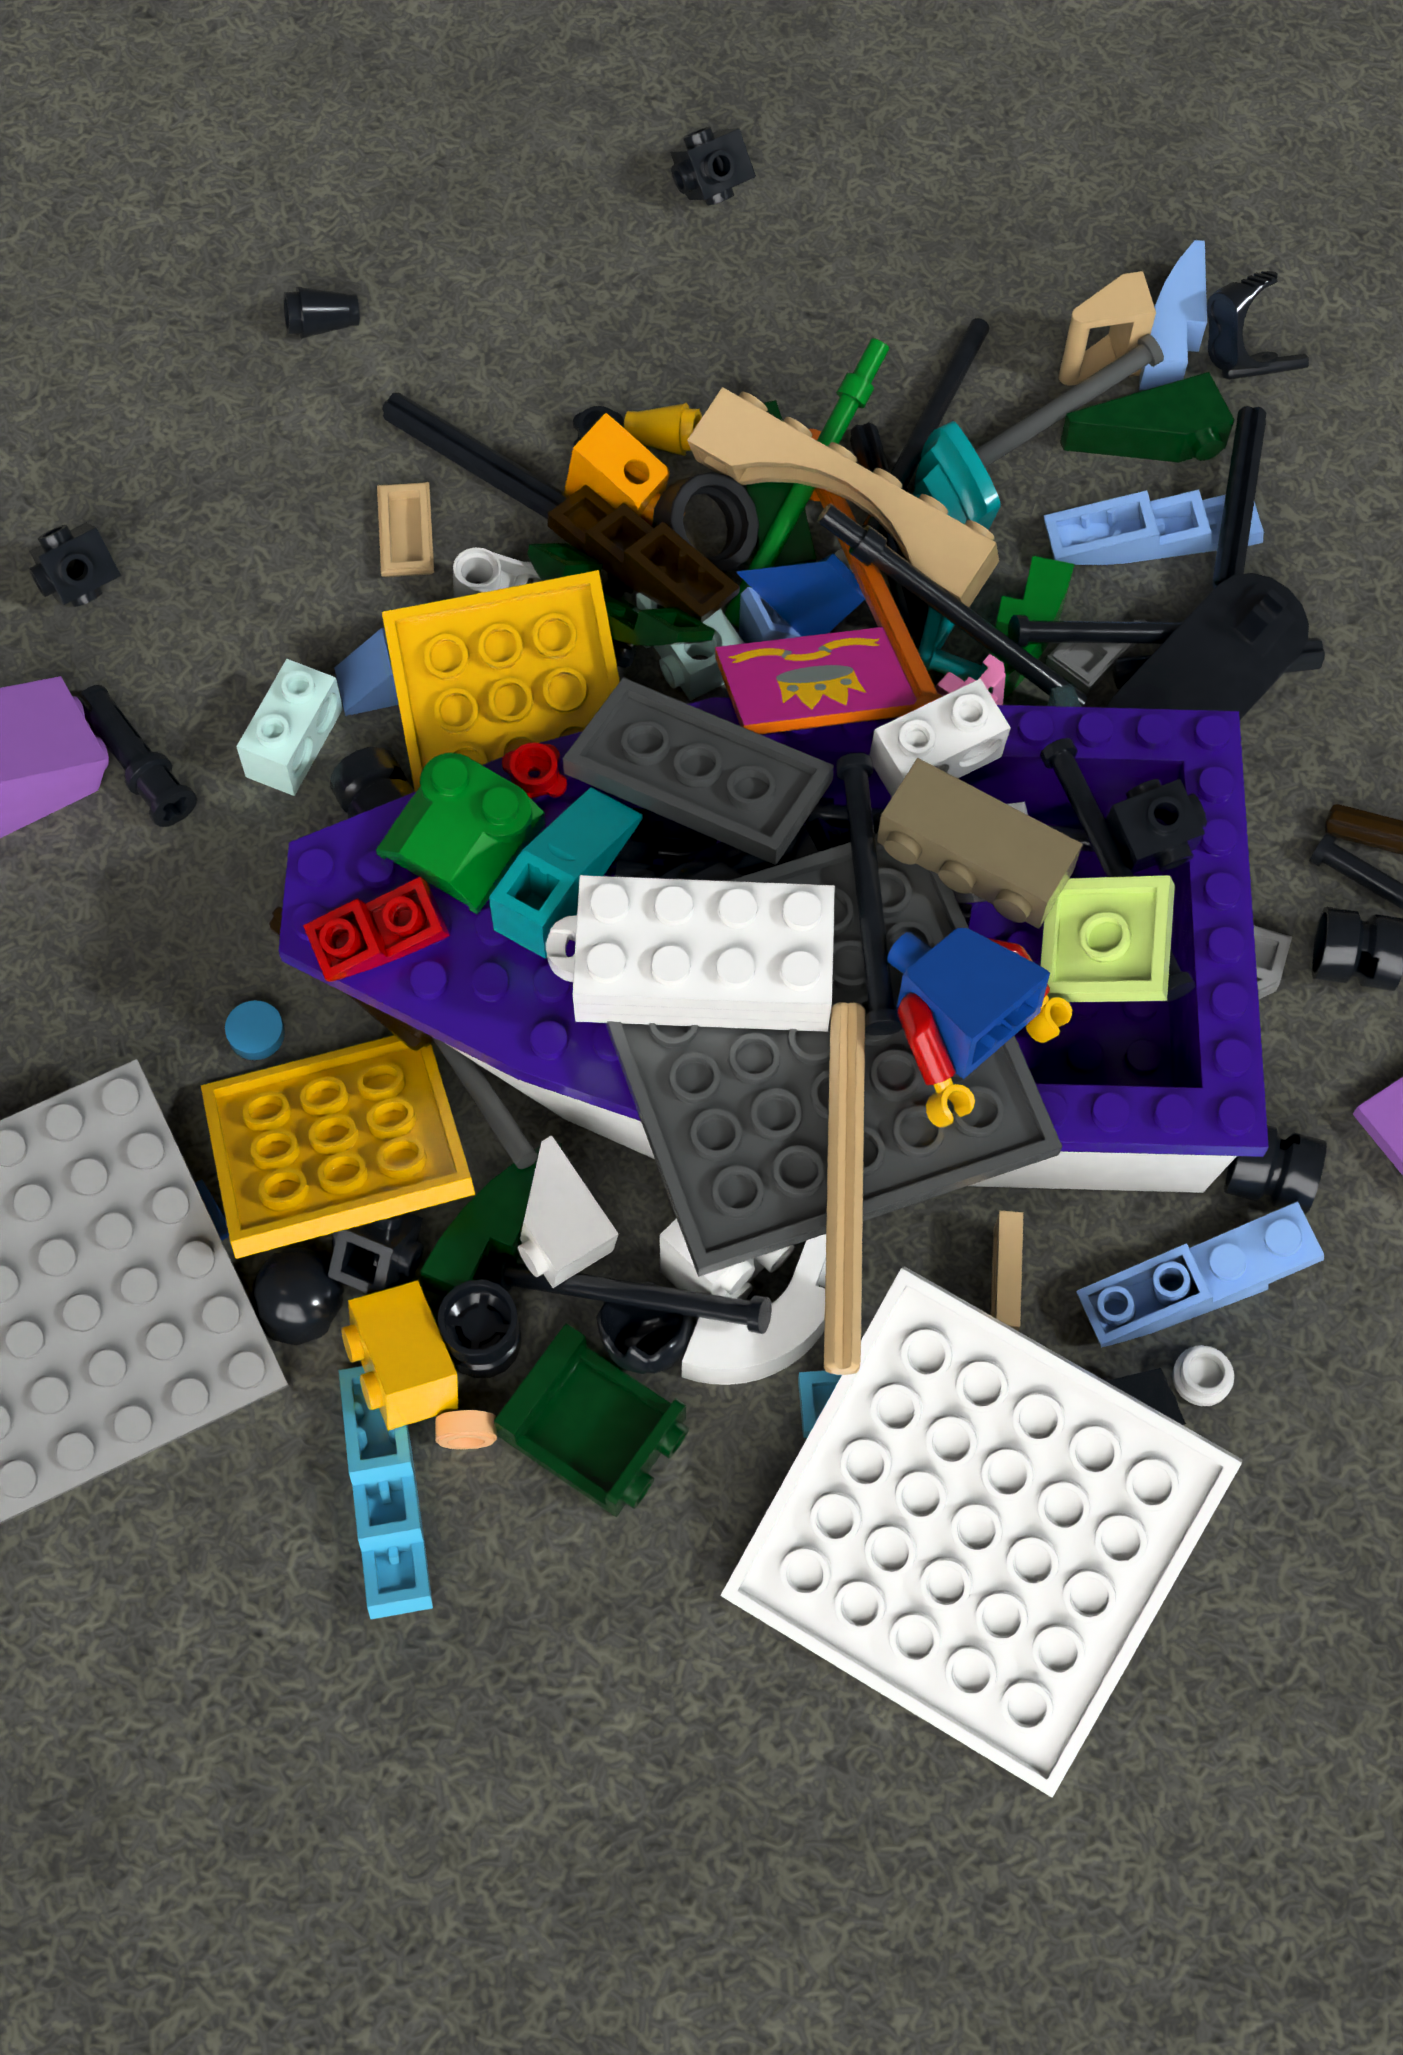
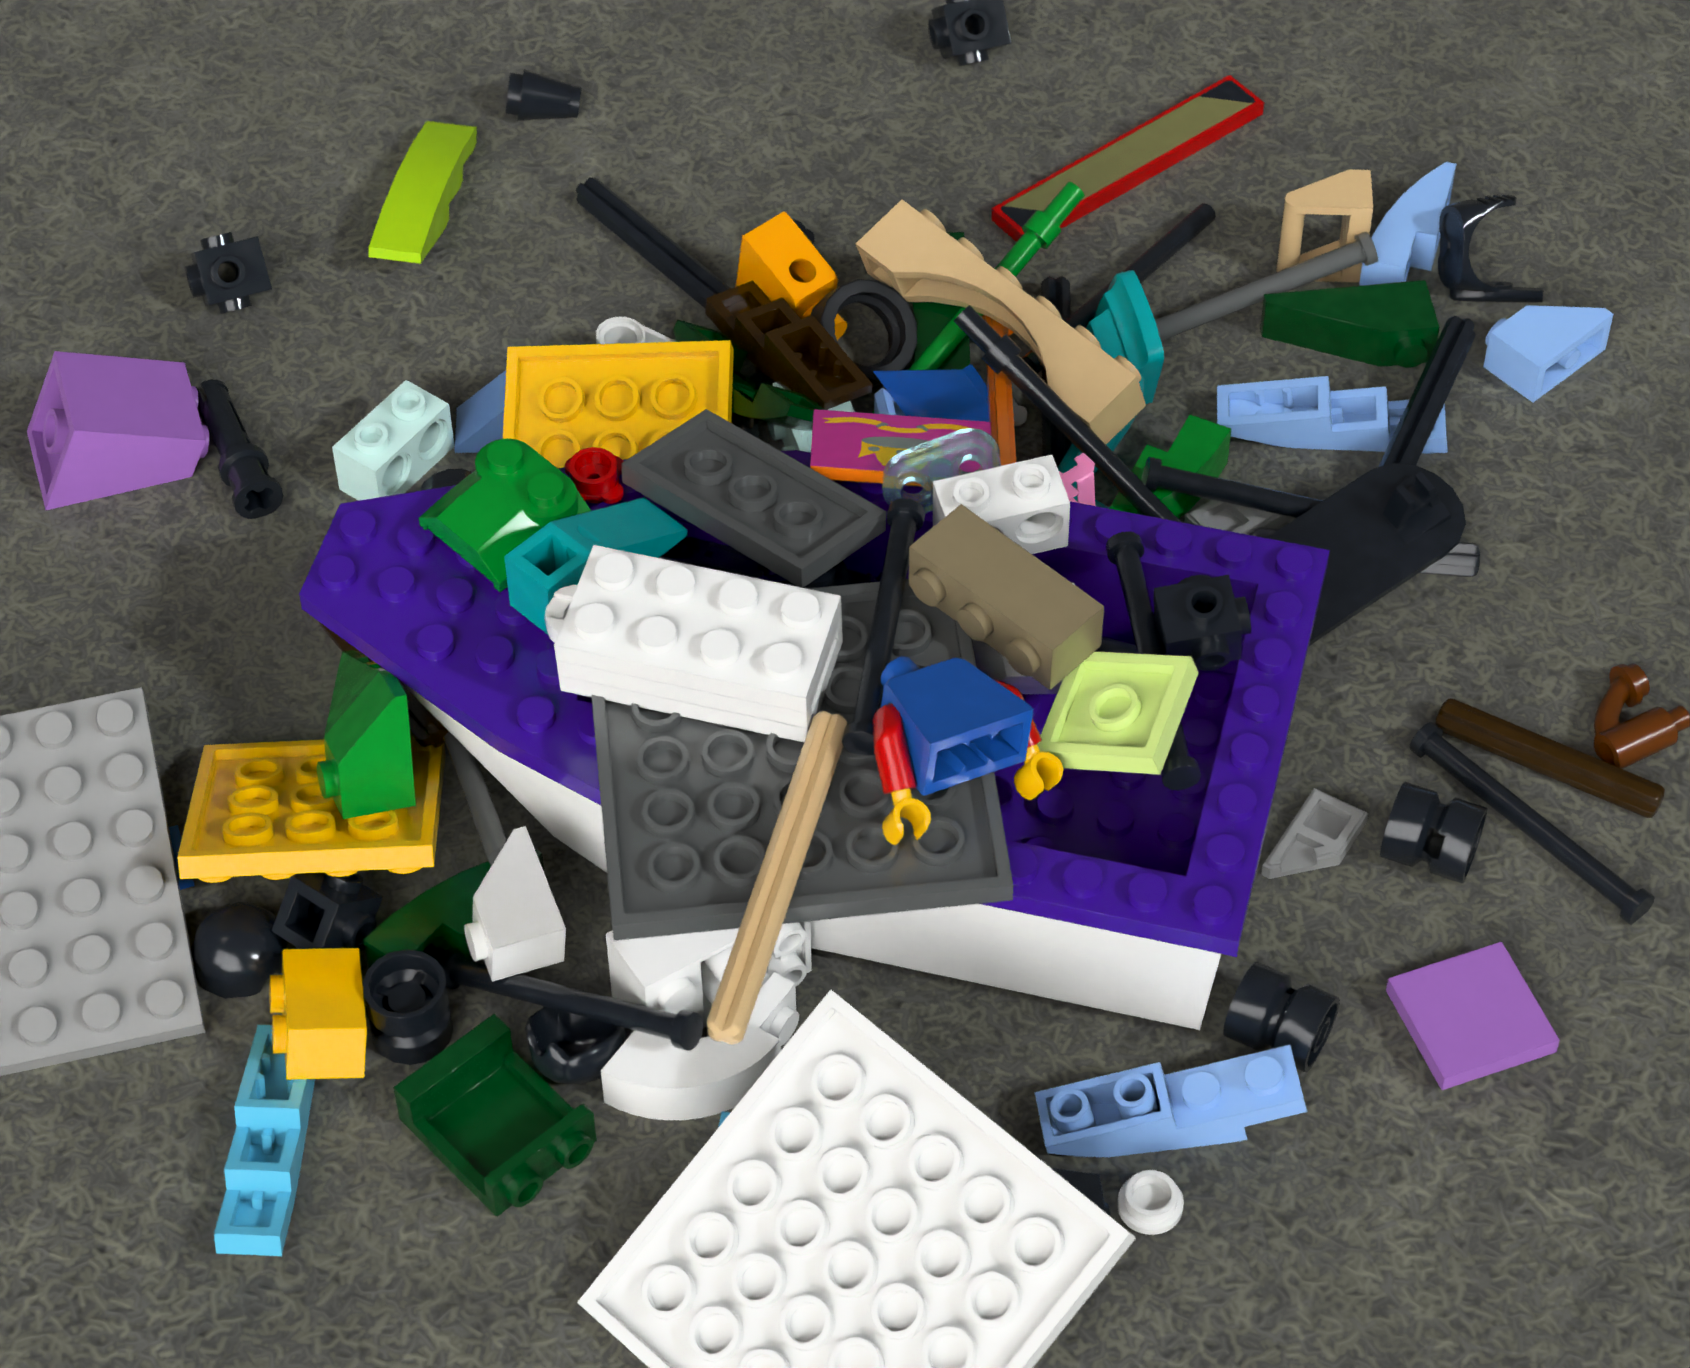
camera: 15 degrees right, 15 degrees down
(236, 439) = (421, 192): none -> lime slope
(254, 1030) = (274, 709): dark azure tile -> none
(373, 1073) = (367, 741): none -> green wedge
(376, 932) = (389, 589): red slope -> none
(405, 529) = (565, 299): tan tile -> none
(465, 1429) = (365, 1098): light nougat tile -> none
(664, 427) = (840, 249): yellow cone -> none
(869, 706) = (937, 461): none -> clear light blue plate
(892, 284) = (1137, 154): none -> tile
(1007, 1268) = (972, 1048): tan tile -> none
(1325, 418) = (1545, 345): none -> light blue slope

